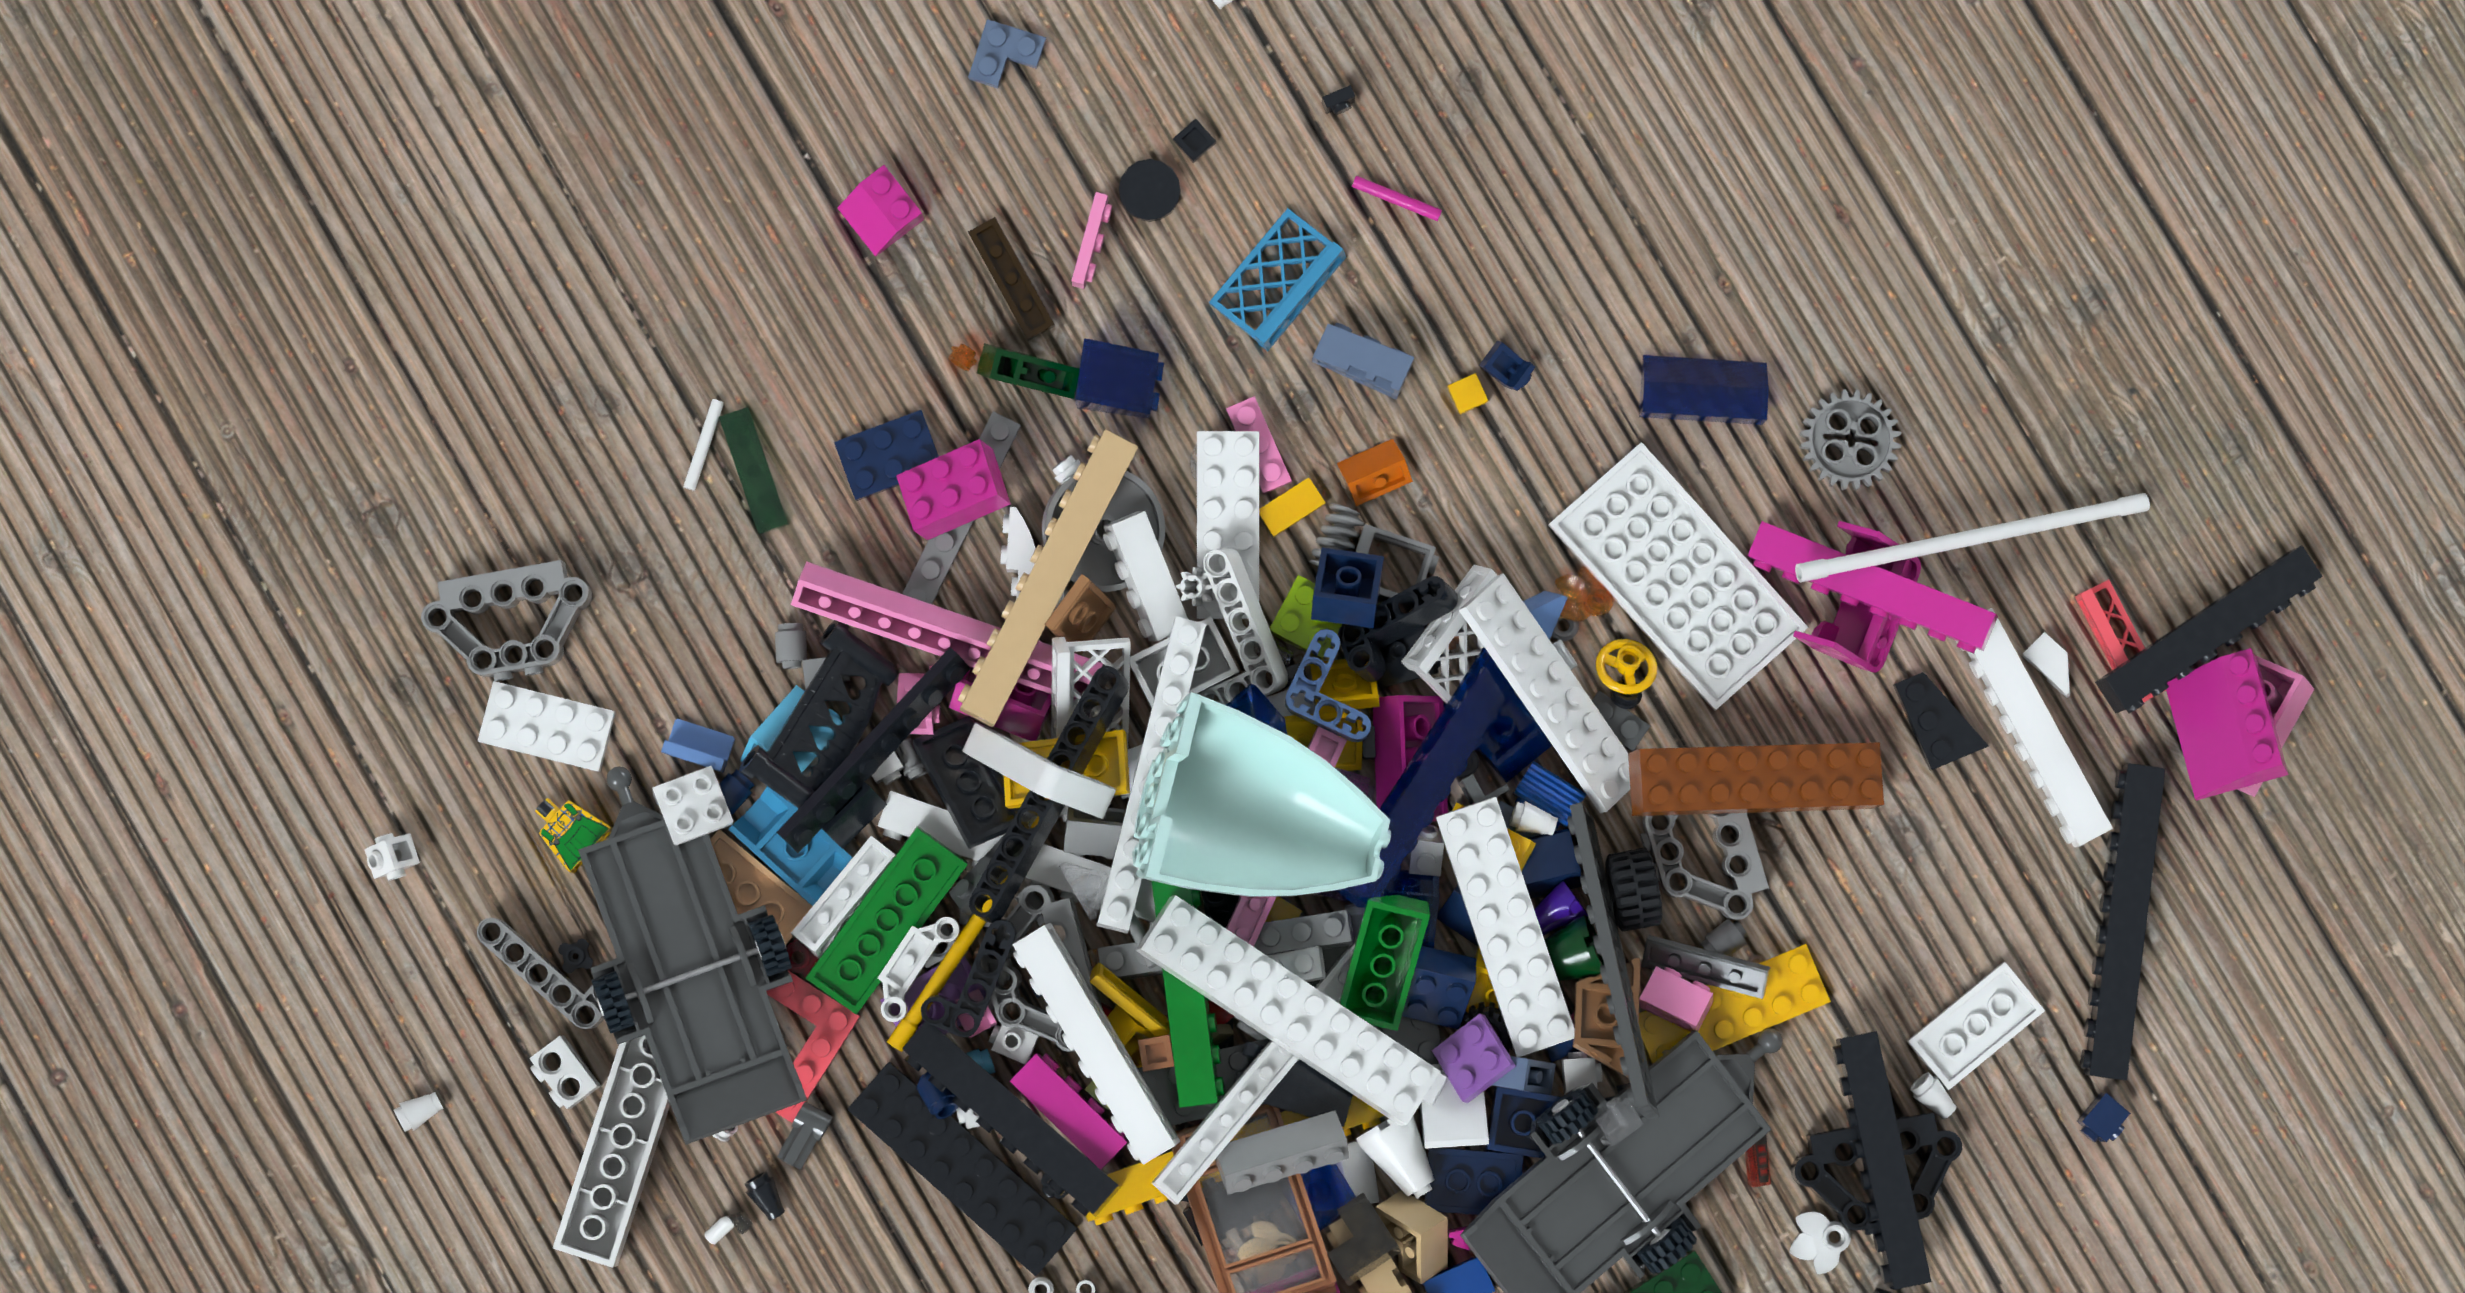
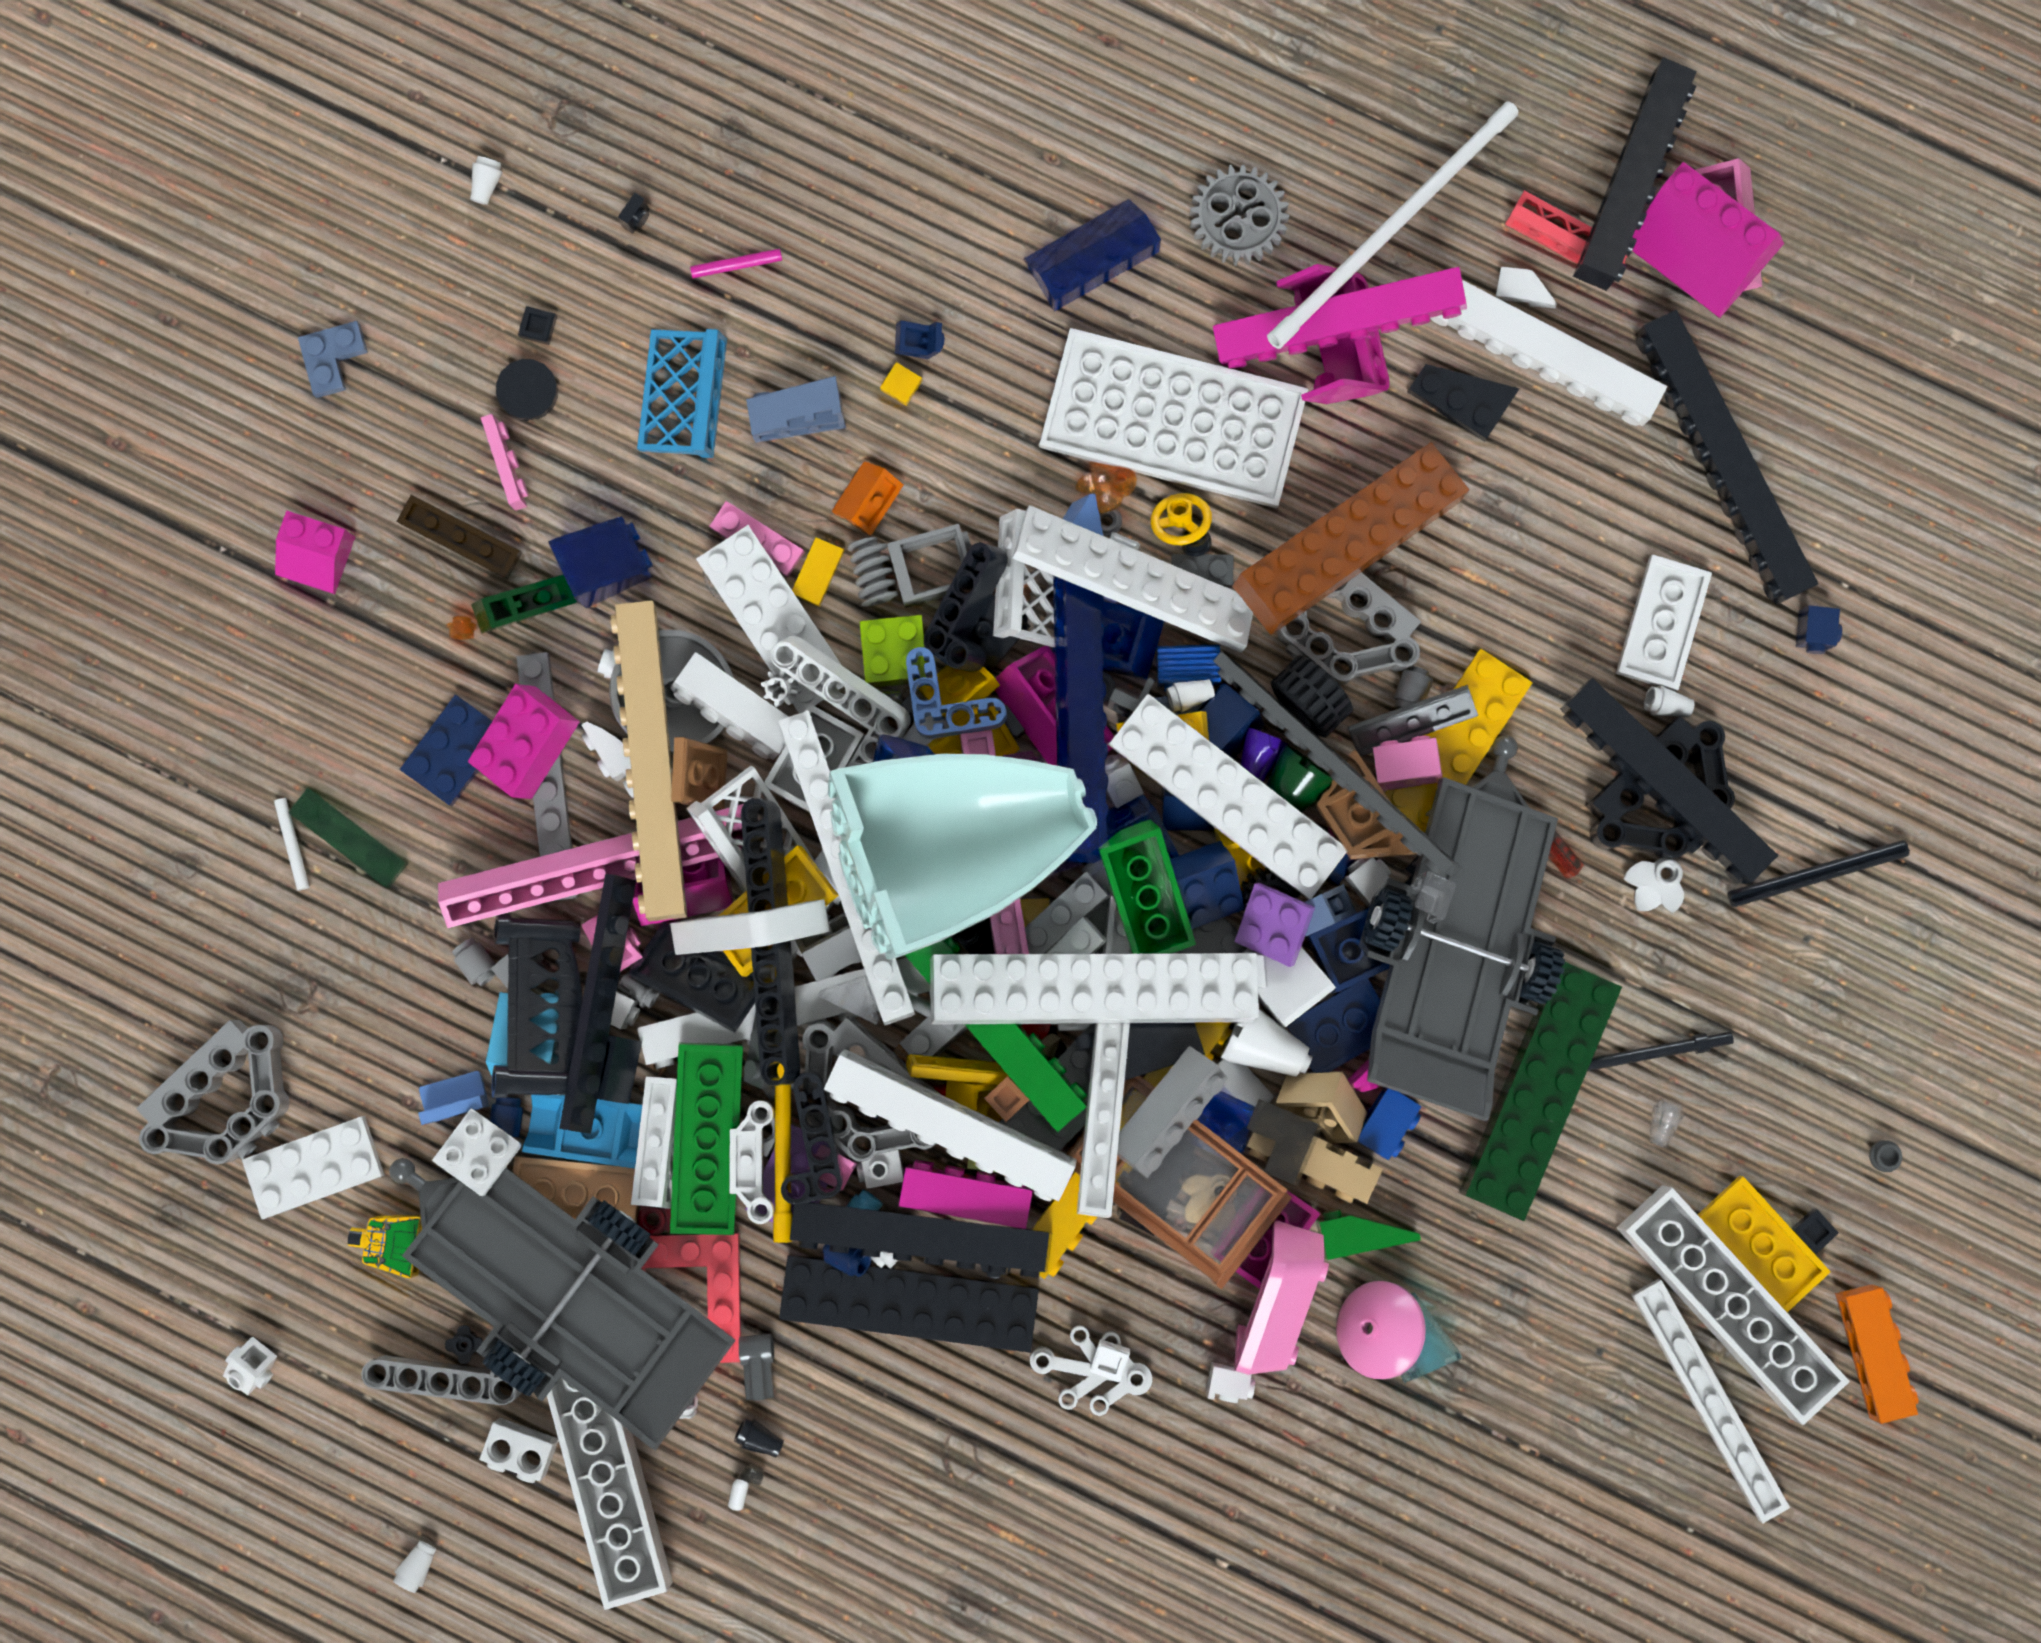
camera: 30 degrees left, 0 degrees up
(1347, 587) = (907, 602): dark blue brick -> none

